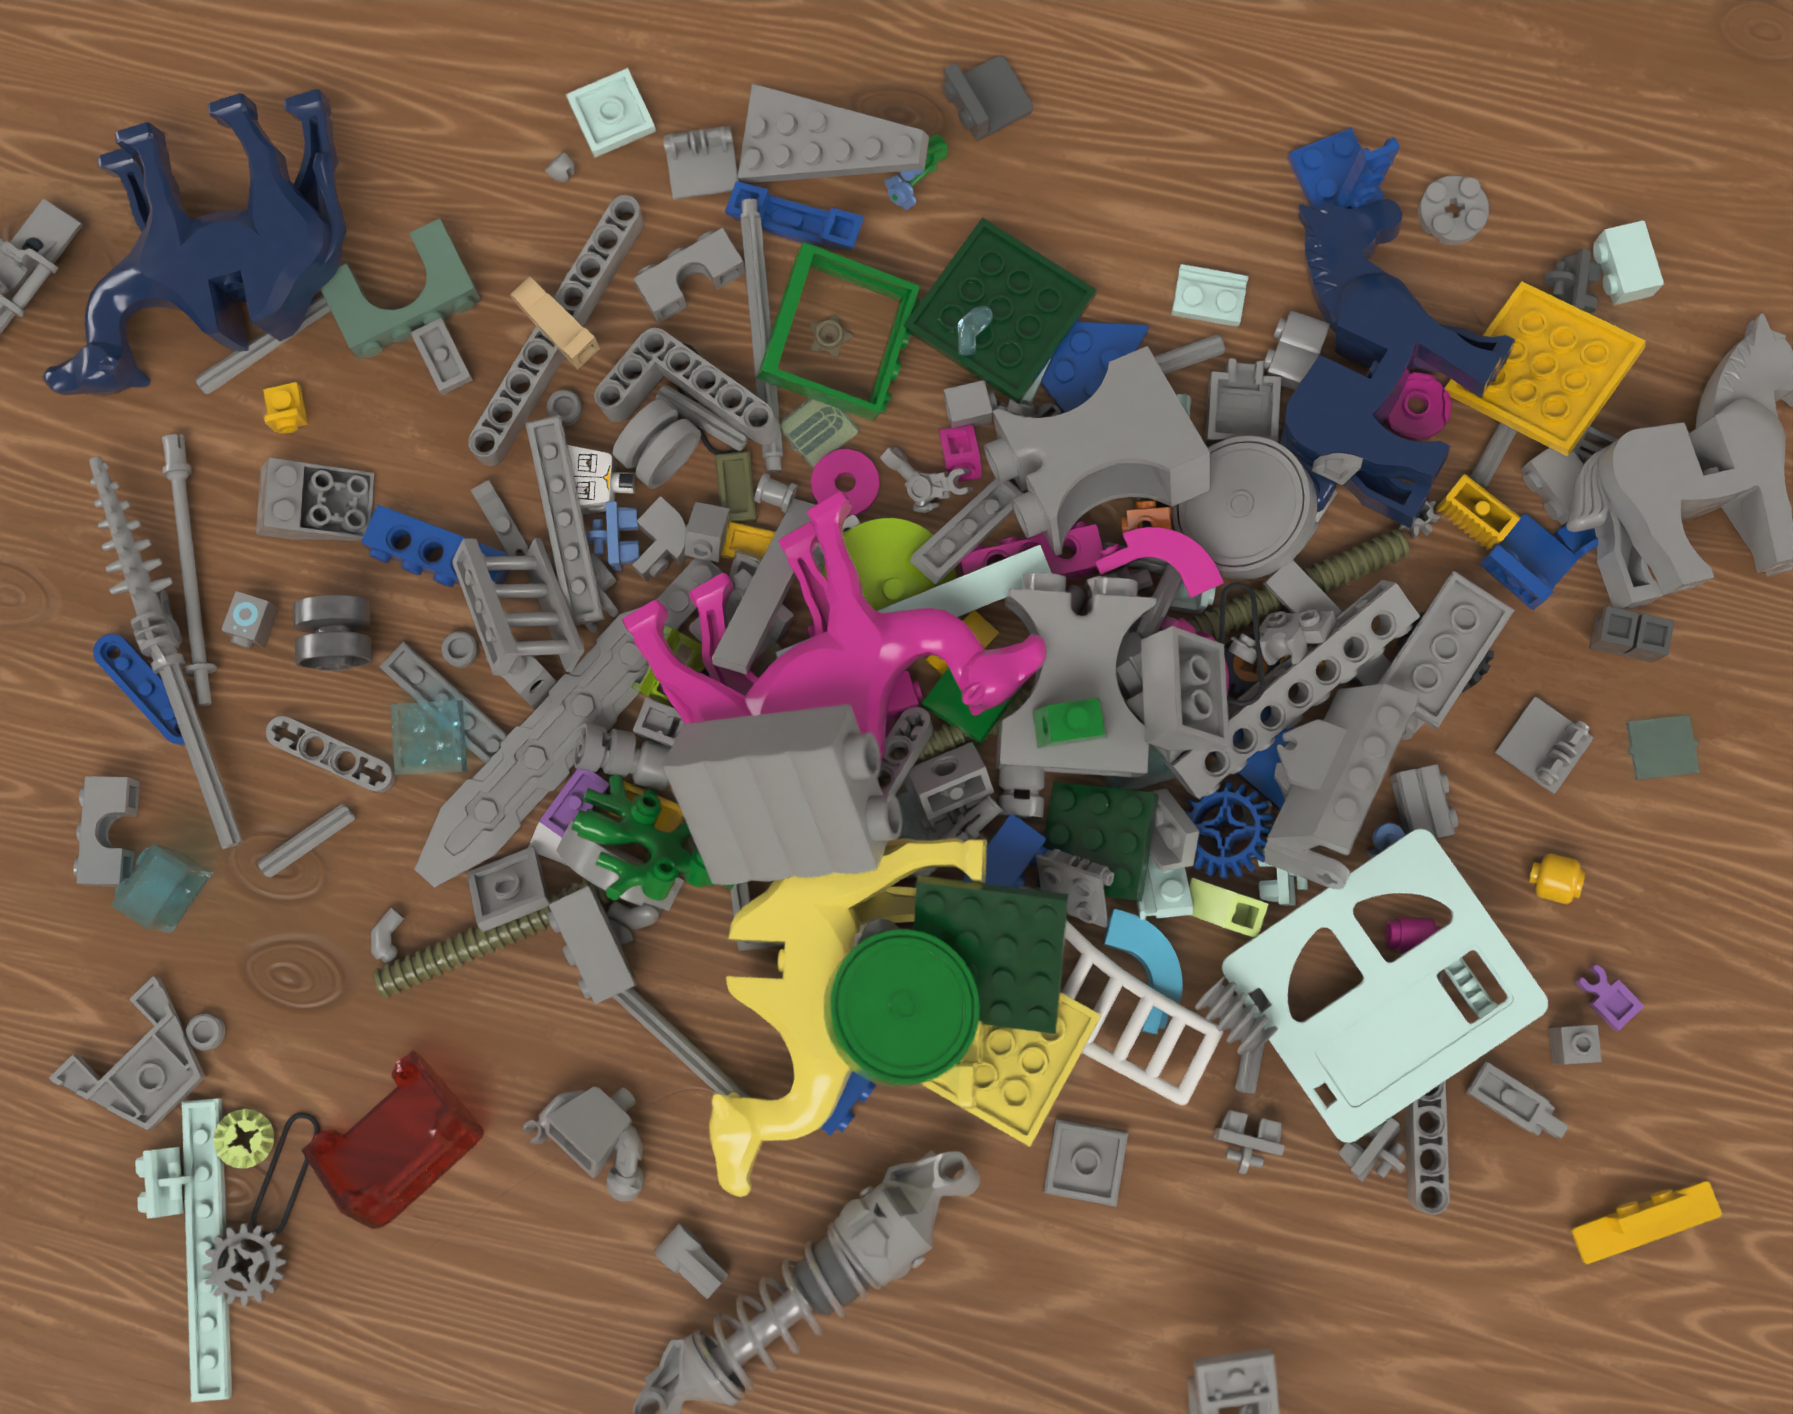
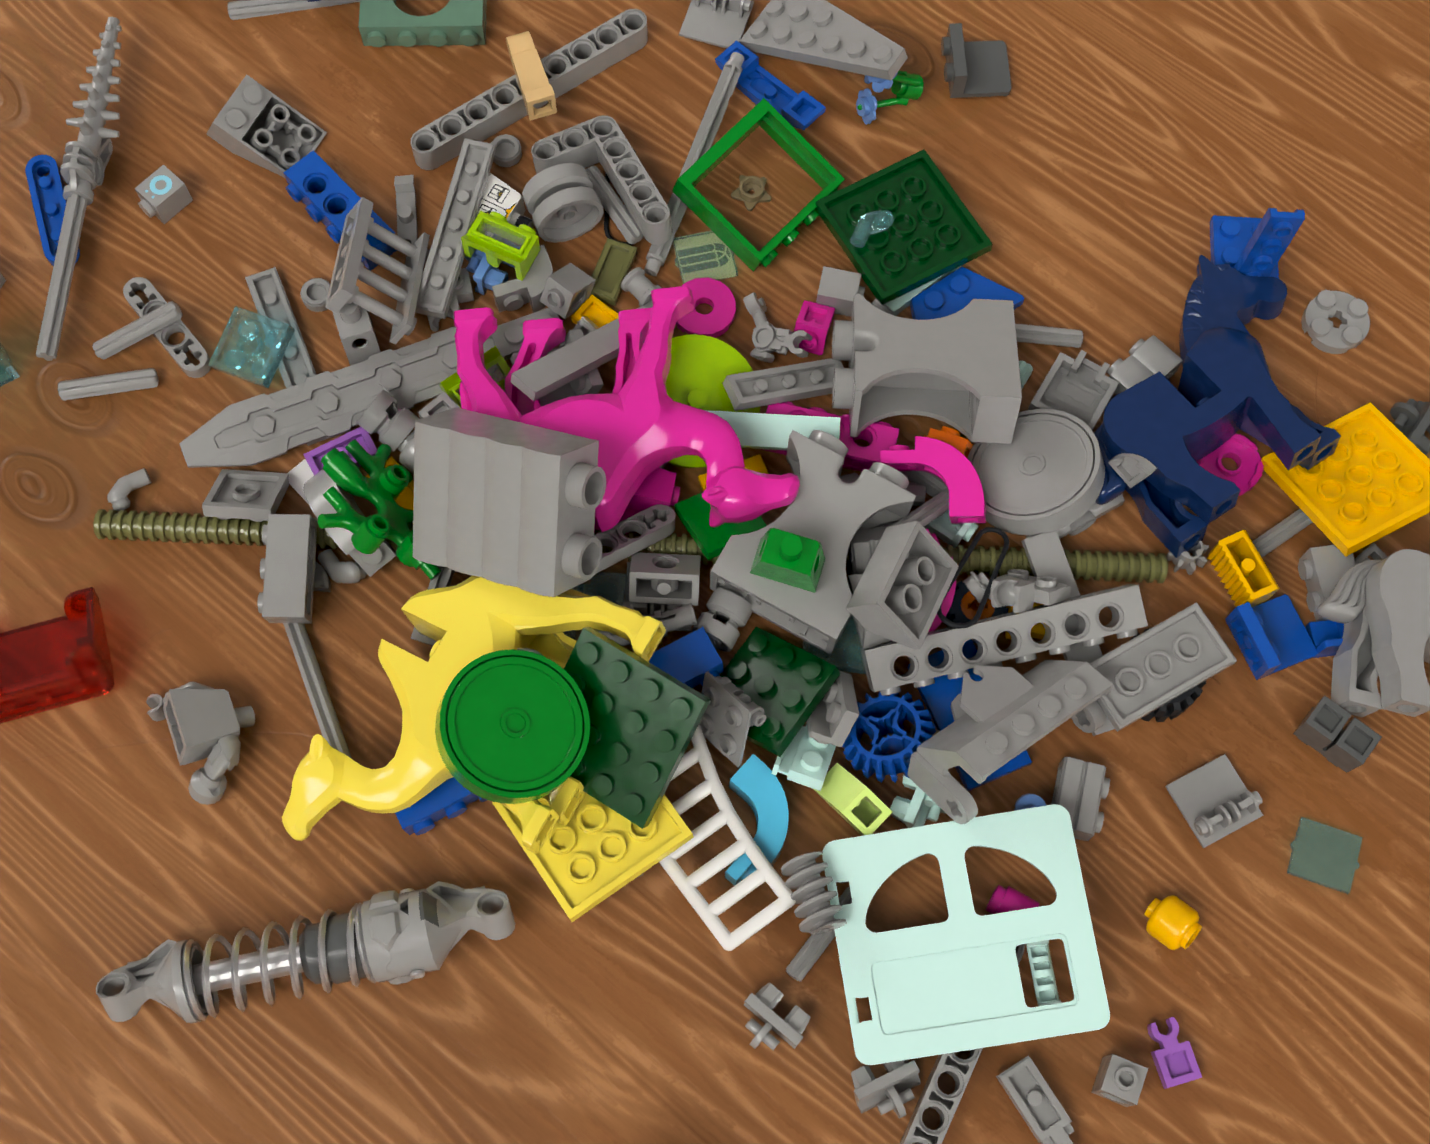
camera: 20 degrees right, 10 degrees down
(177, 472) = (173, 61): light grey bar -> none
(285, 408) = (284, 54): yellow bracket -> none
(307, 774) = (137, 330): none -> light grey axle
(333, 629) = (220, 229): flat silver wheel -> none
(441, 356) = (429, 69): light grey plate -> none
(622, 516) = (502, 241): none -> lime window
(684, 1255) = (223, 874): light grey piece -> none
(710, 256) = (637, 89): light grey arch -> none
(1085, 1162) = (617, 969): light grey tile -> none
(1209, 295) = (1089, 297): light aqua plate -> none

